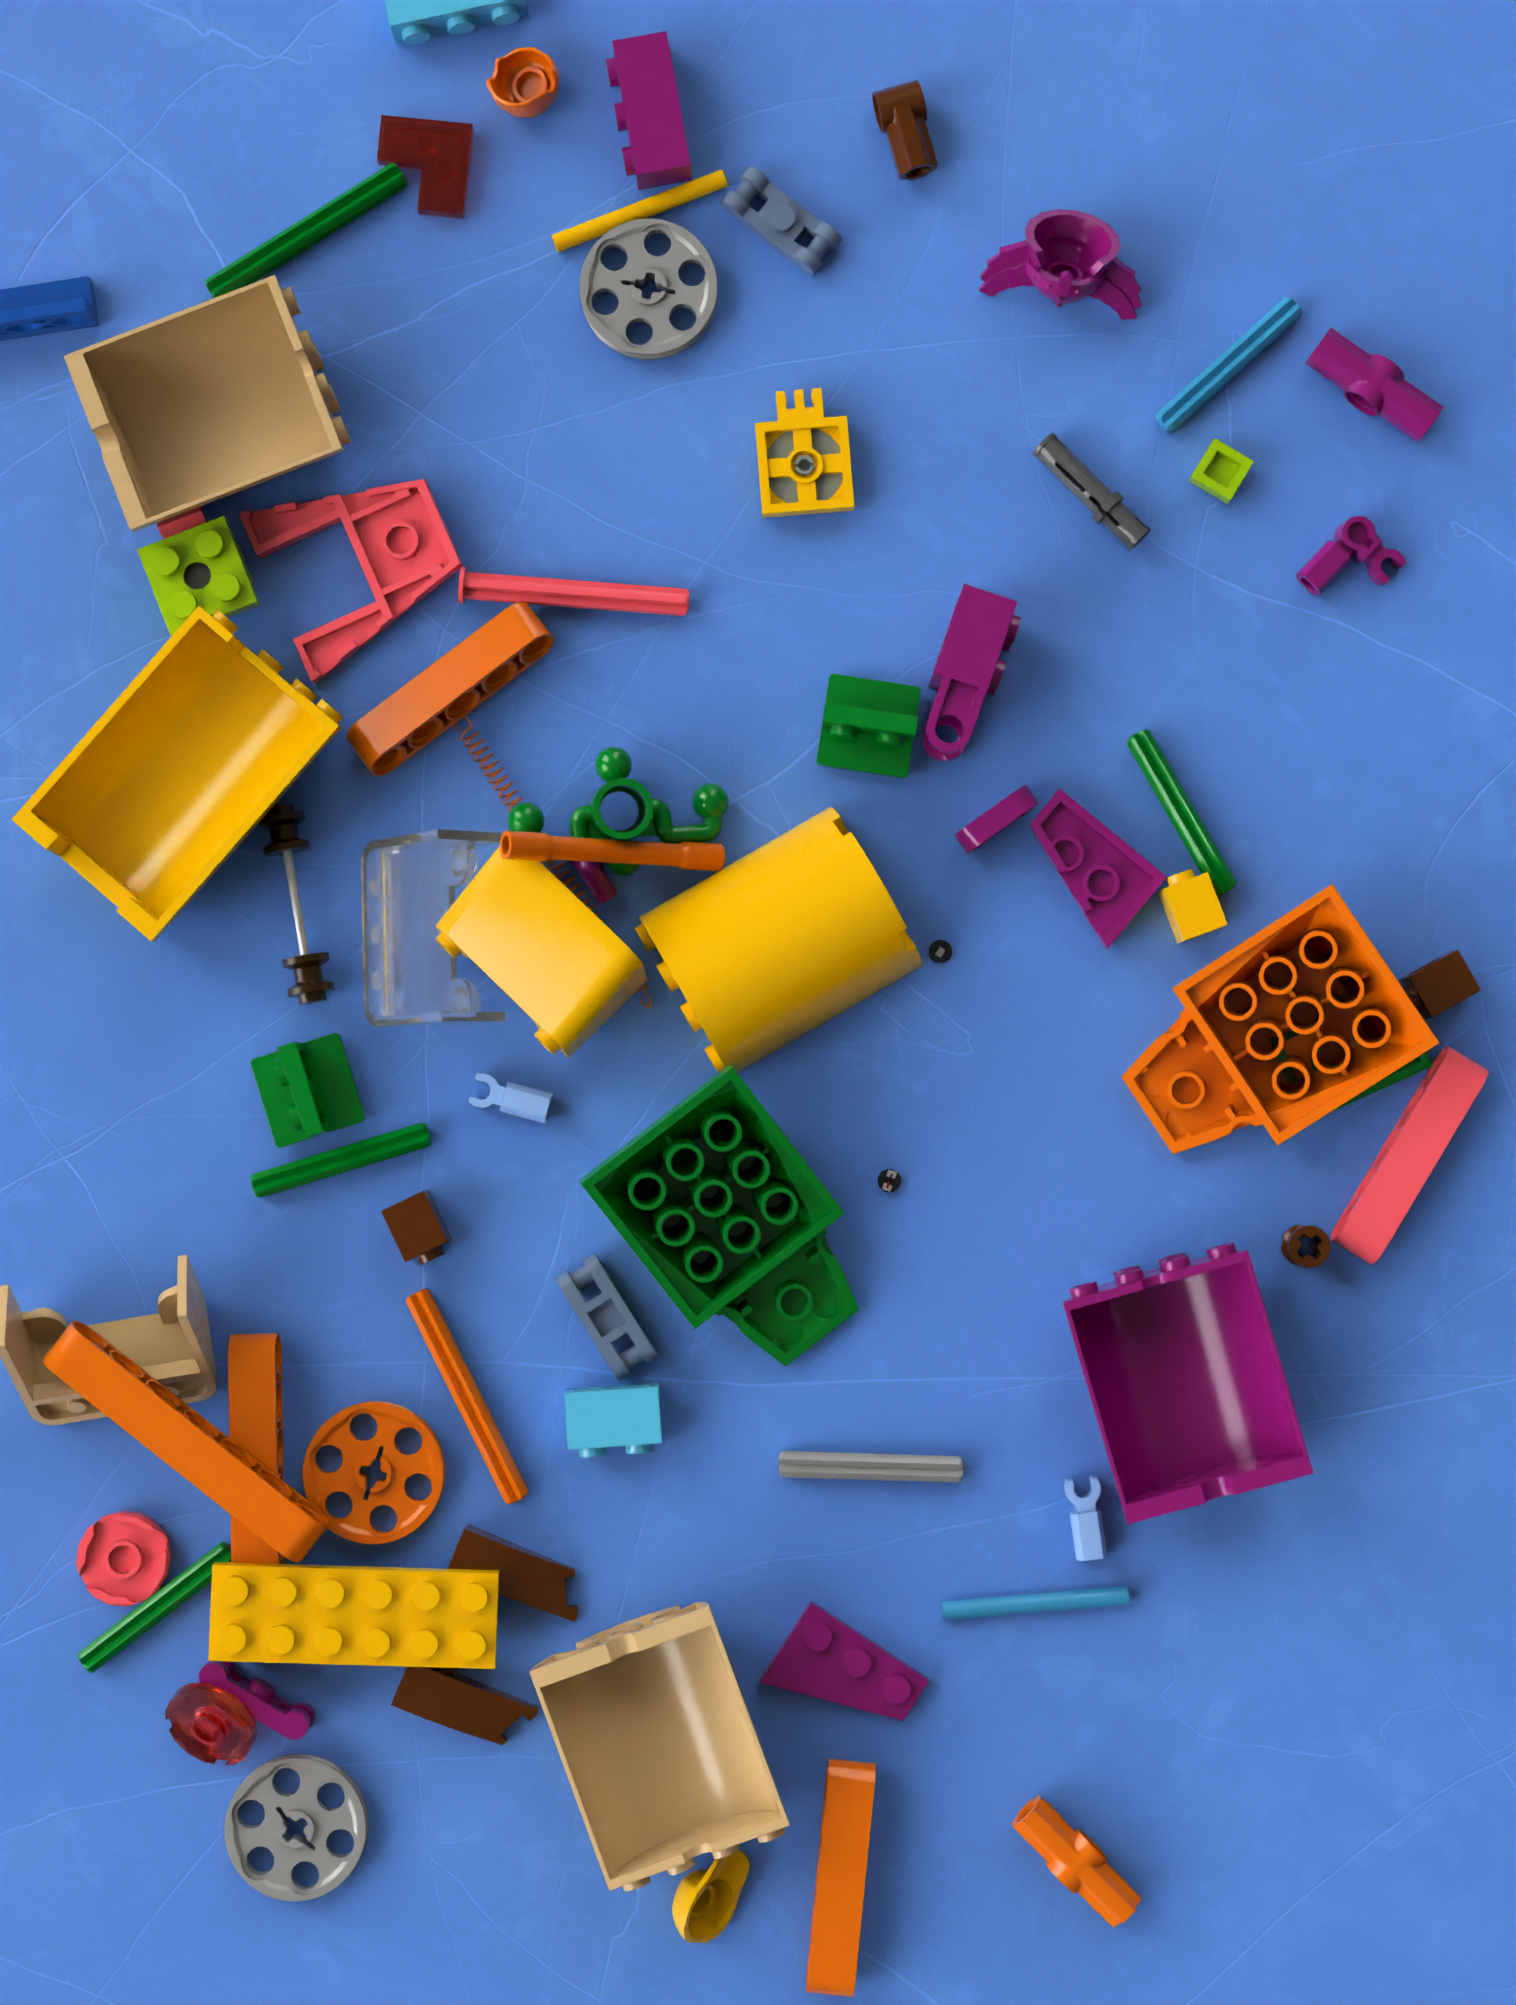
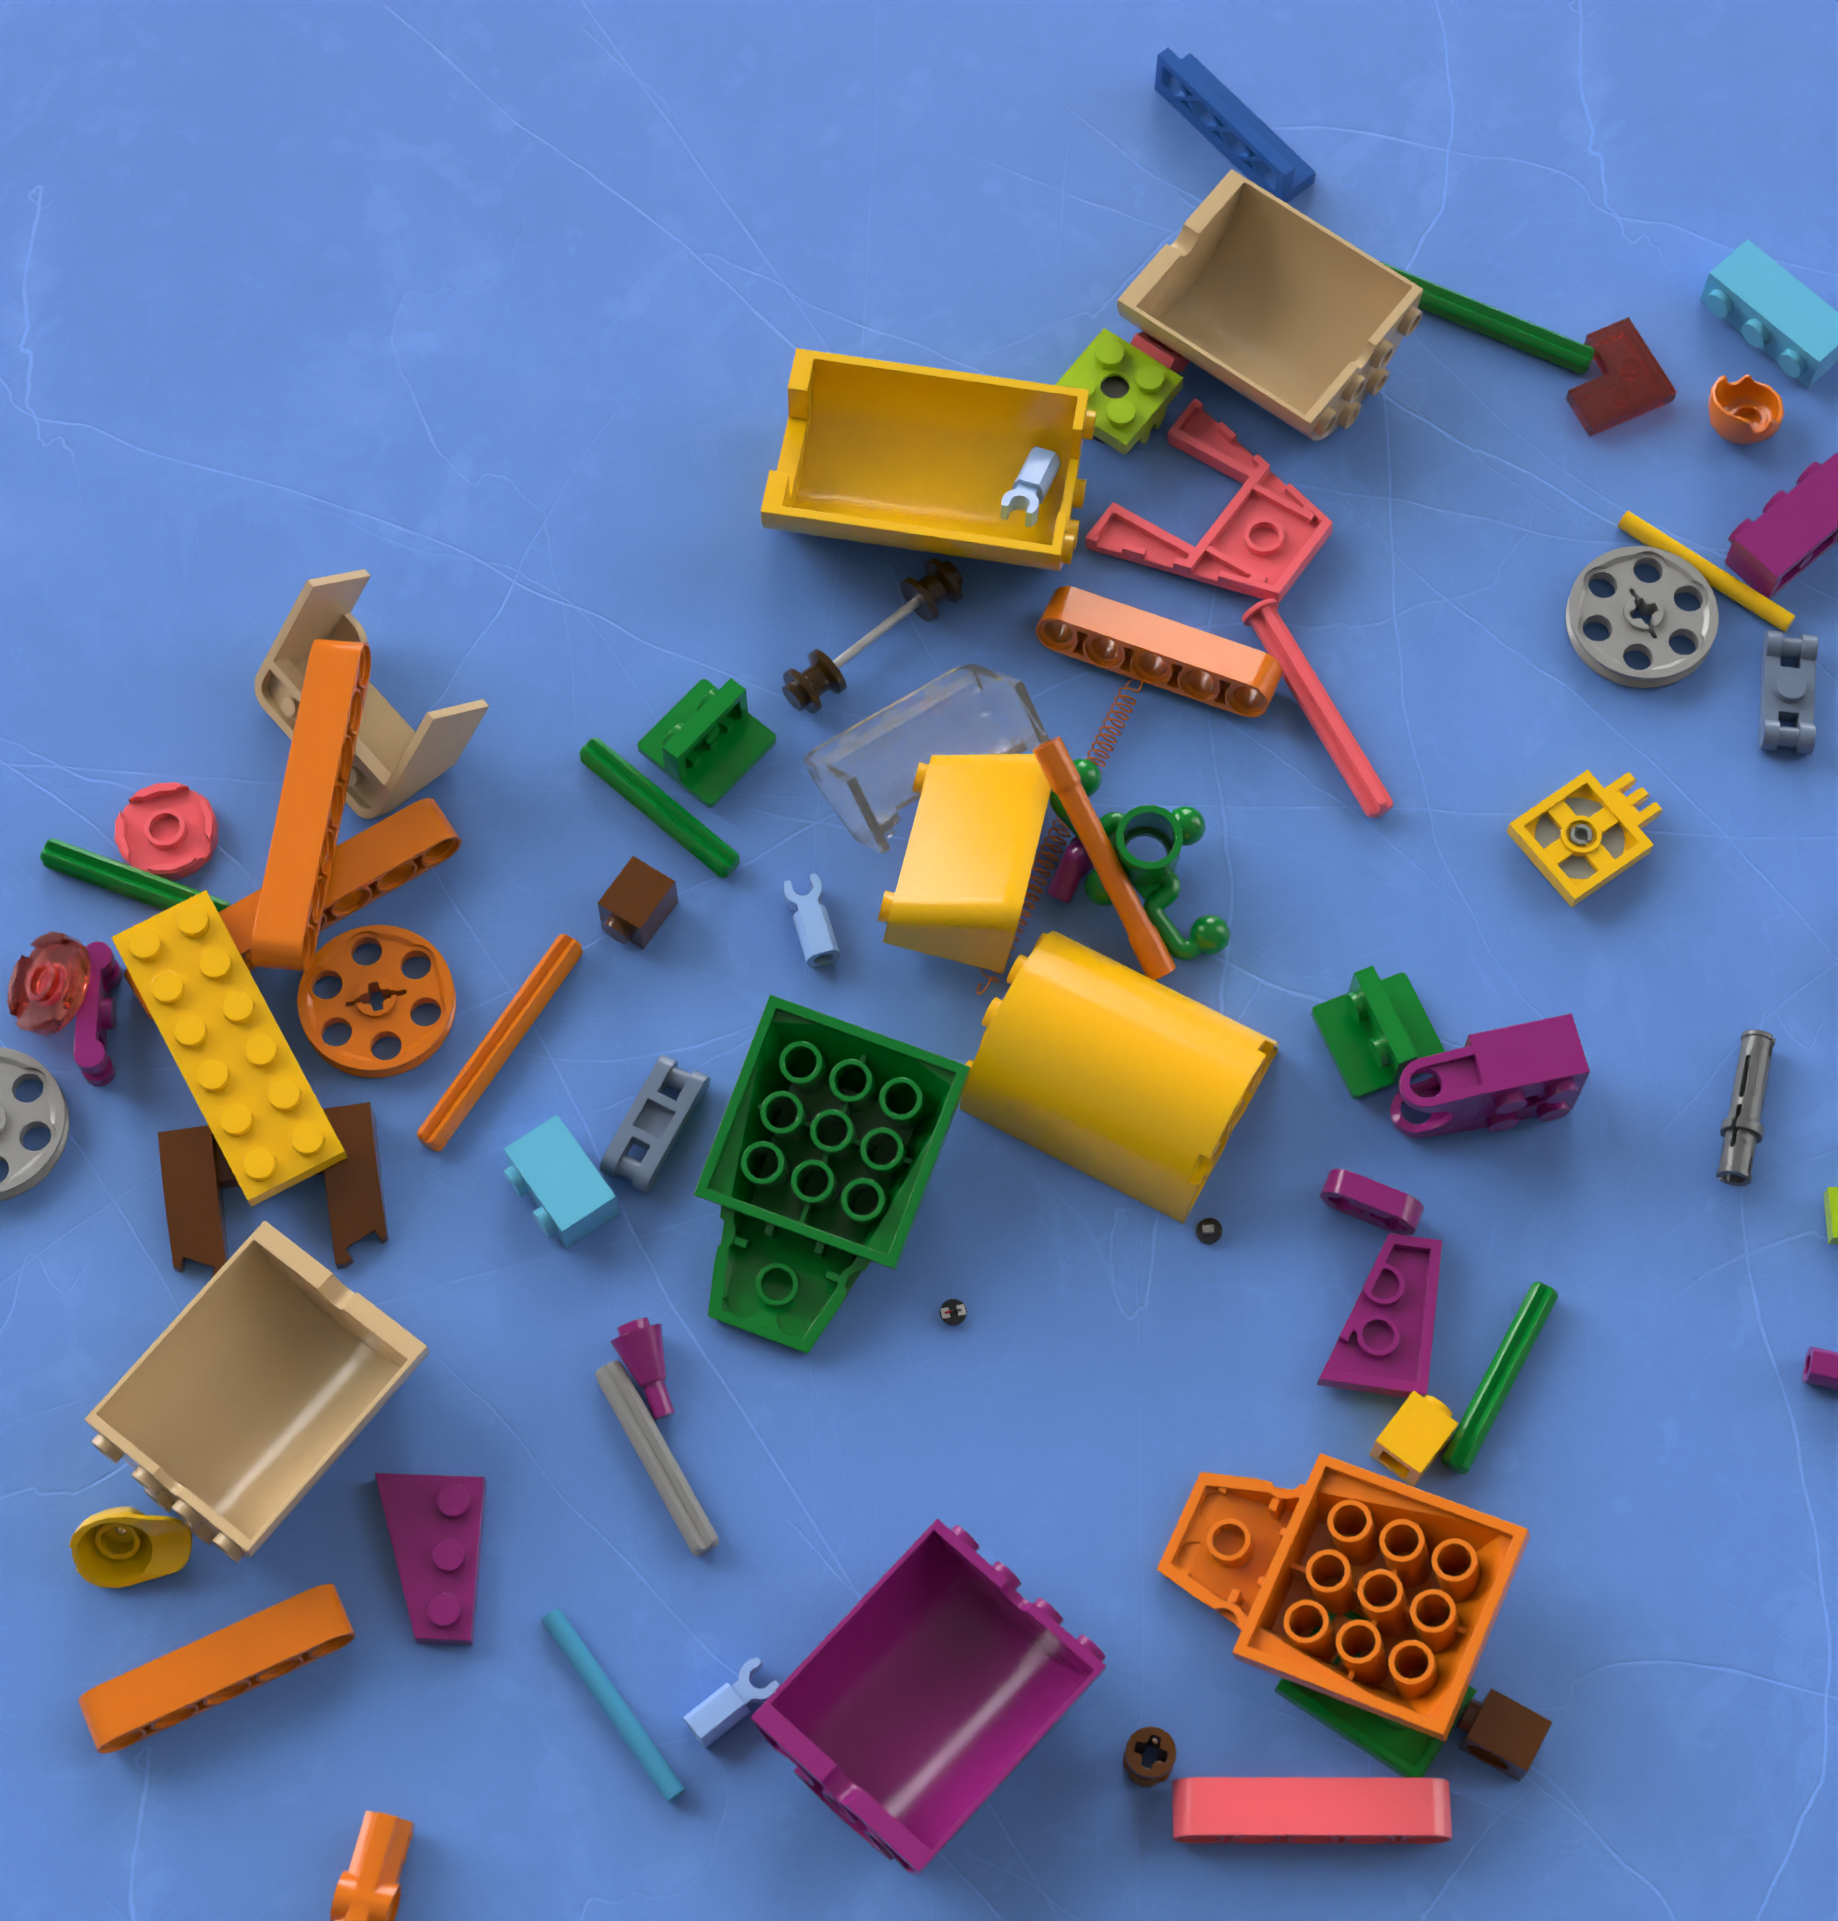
camera: 60 degrees right, 20 degrees down
(244, 698) = (1031, 484): none -> light blue bar
(787, 1432) = (643, 1354): none -> magenta cone

